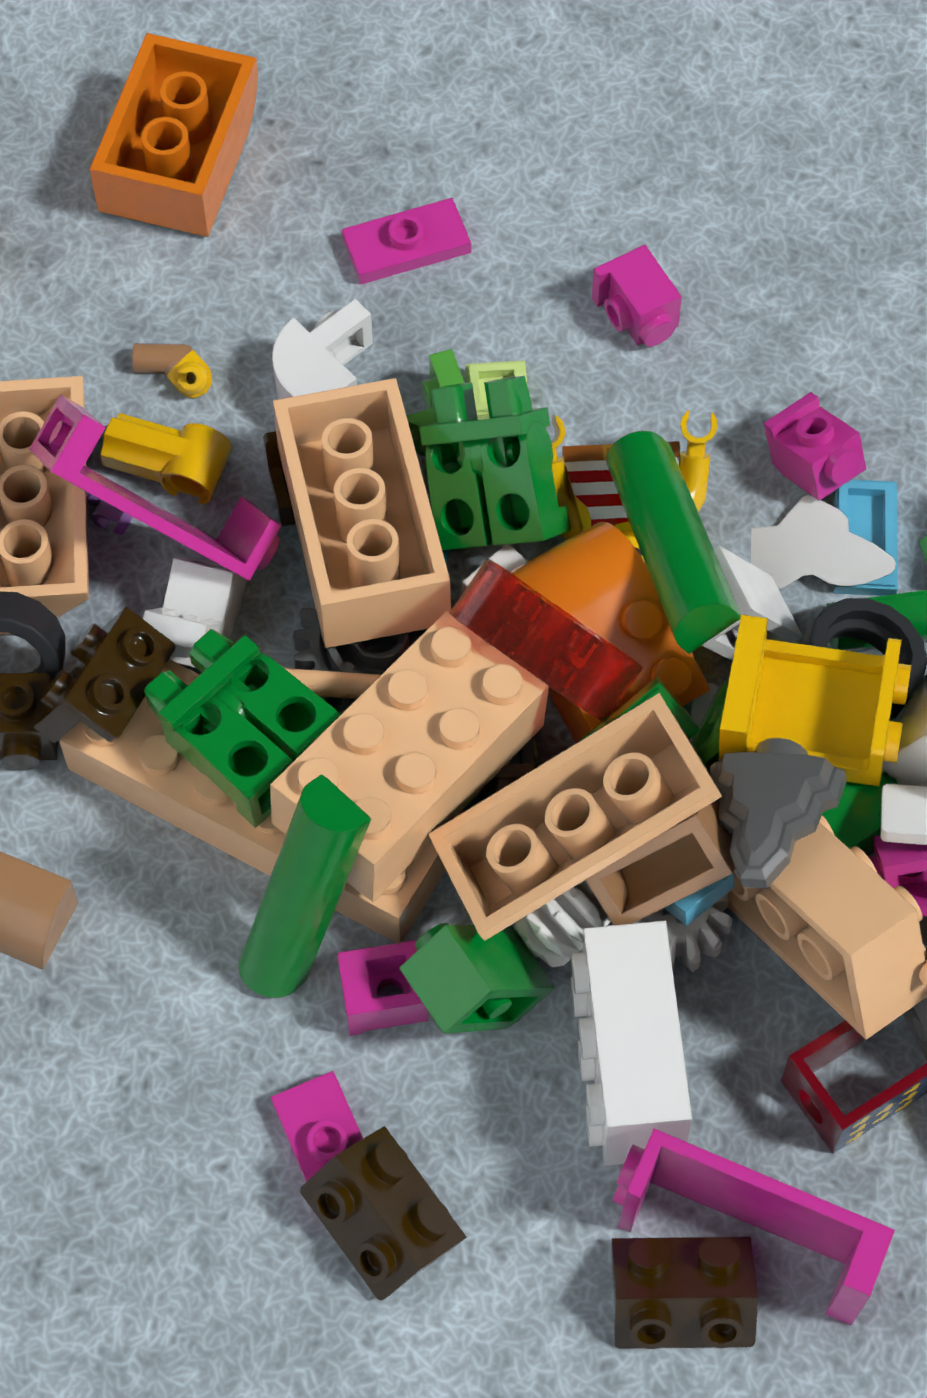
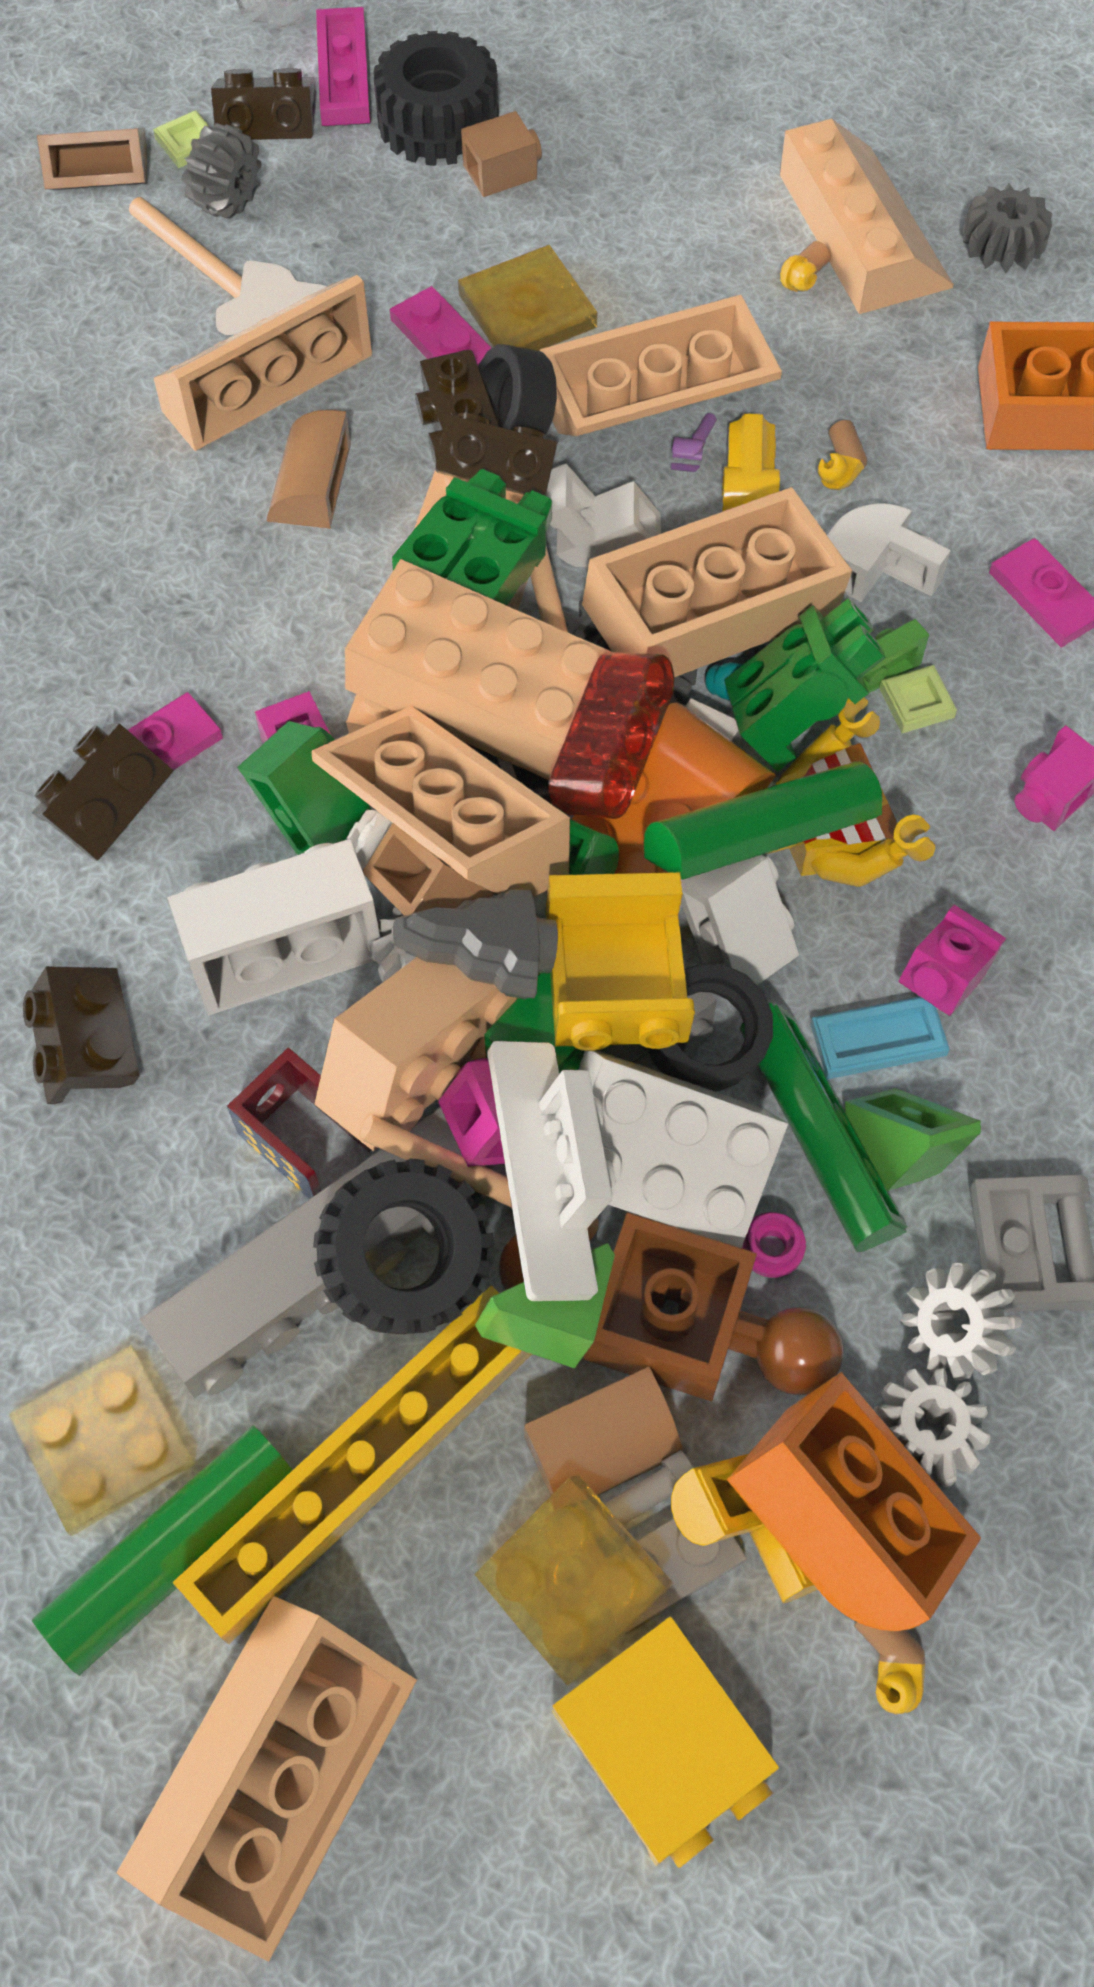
camera: 75 degrees right, 0 degrees up
(65, 445) = (660, 417): dark pink panel -> none
(303, 889) = (332, 618): green brick -> none
(763, 1204) = (122, 1148): dark pink panel -> none
(817, 543) = (847, 992): white sticker -> none

